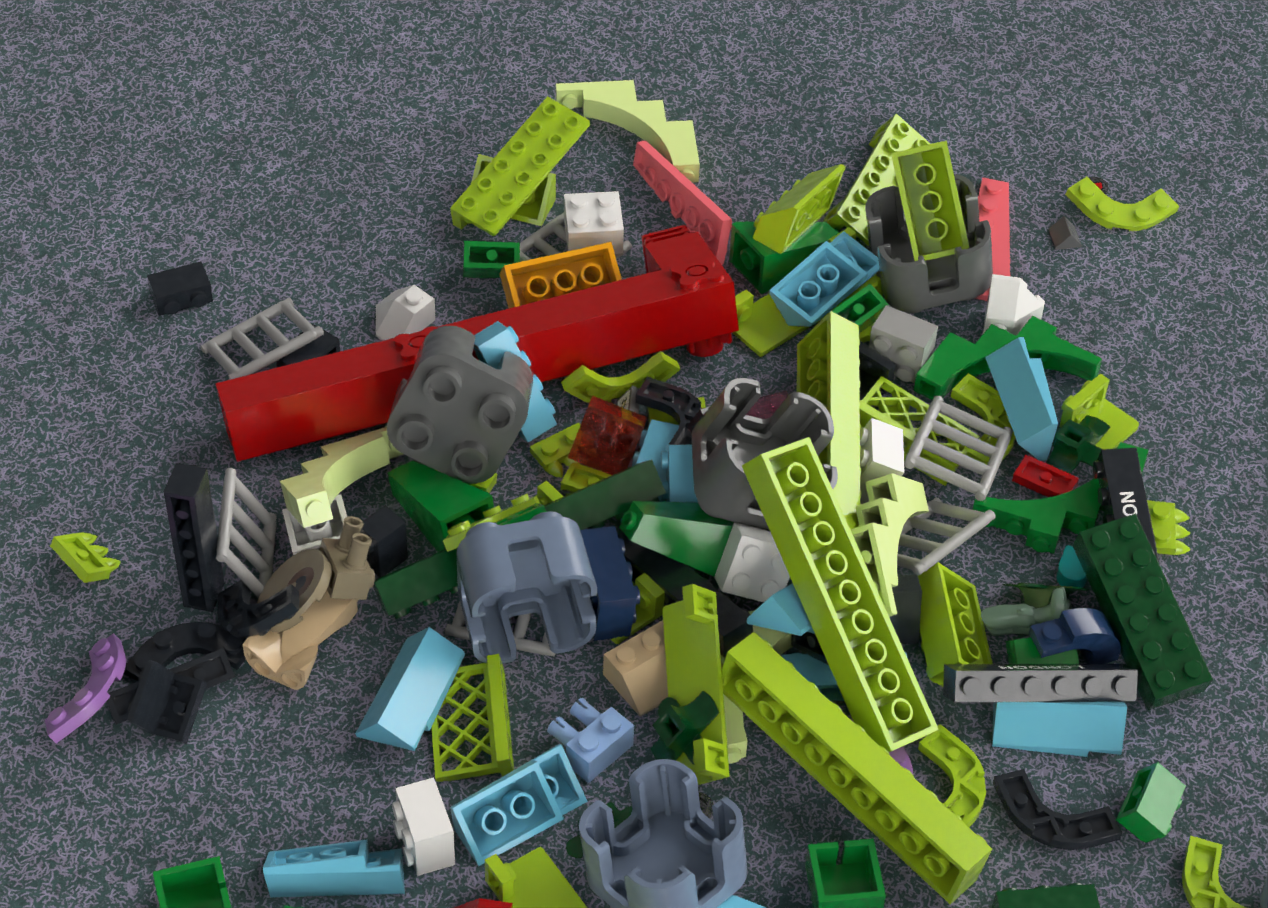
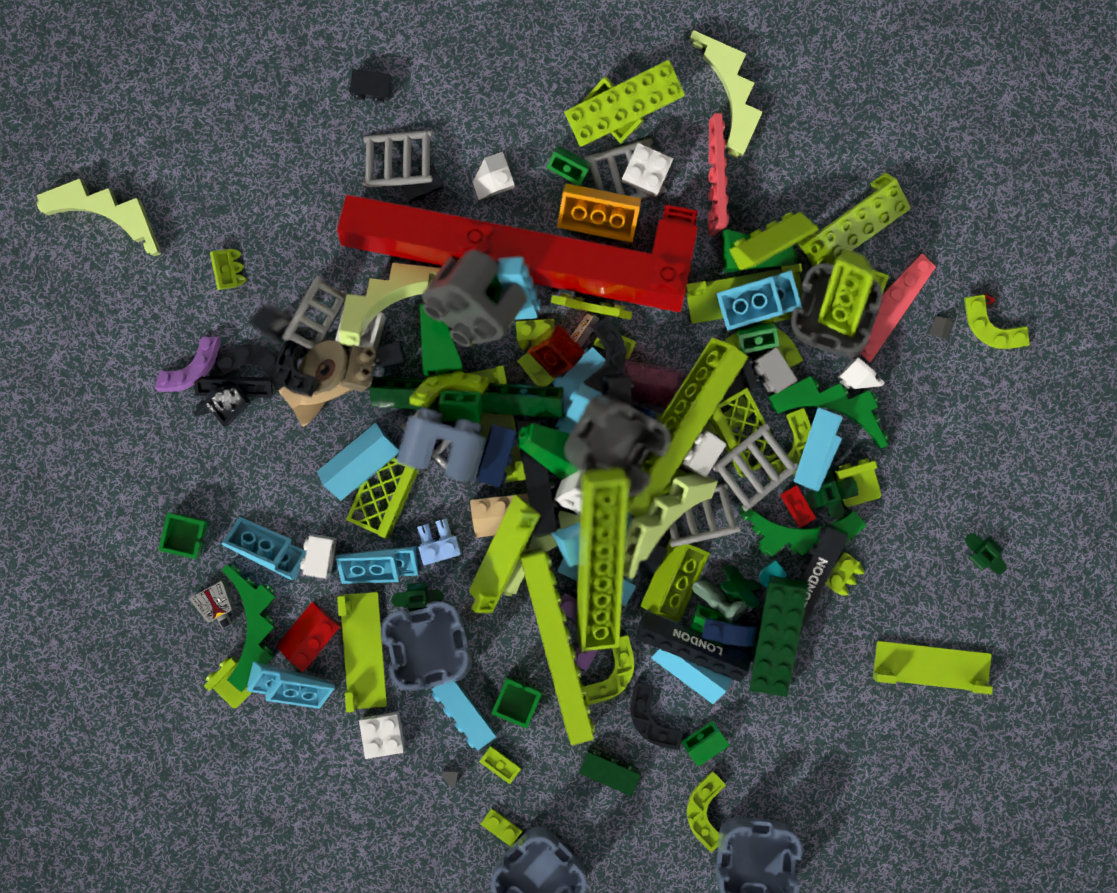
camera: 30 degrees right, 40 degrees up
(682, 726) = (486, 569): dark green piece -> none

